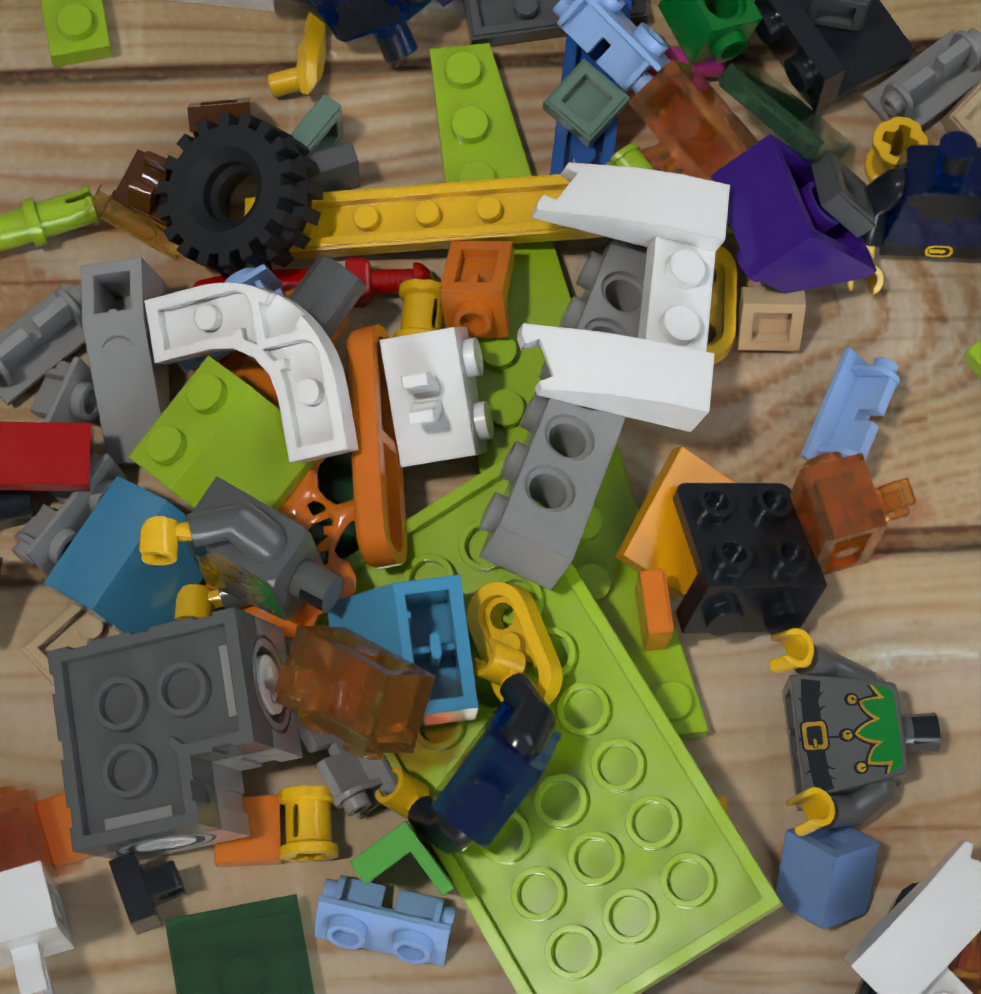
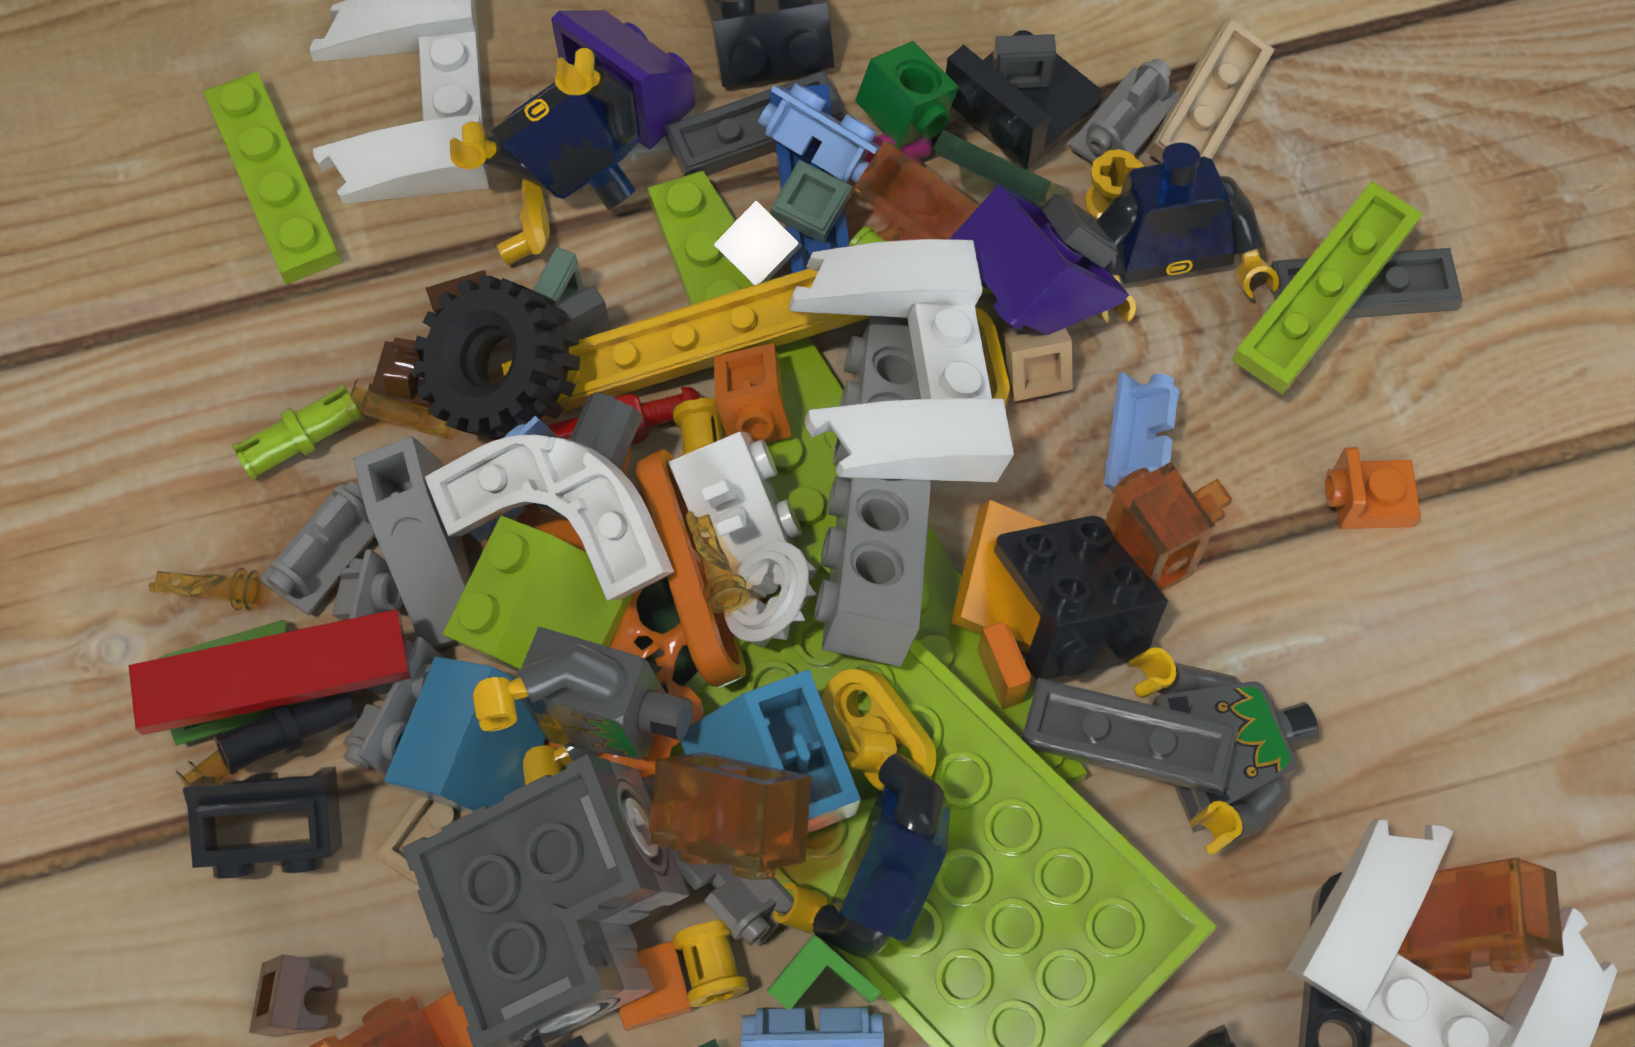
camera: 10 degrees left, 5 degrees down
(402, 477) = (724, 588): none -> clear yellow piece
(441, 470) = (764, 571): none -> white gear
(522, 136) = (758, 244): none -> white tile
(754, 706) = (1130, 736): none -> dark grey tile
(827, 874) = (1245, 887): medium blue panel -> none

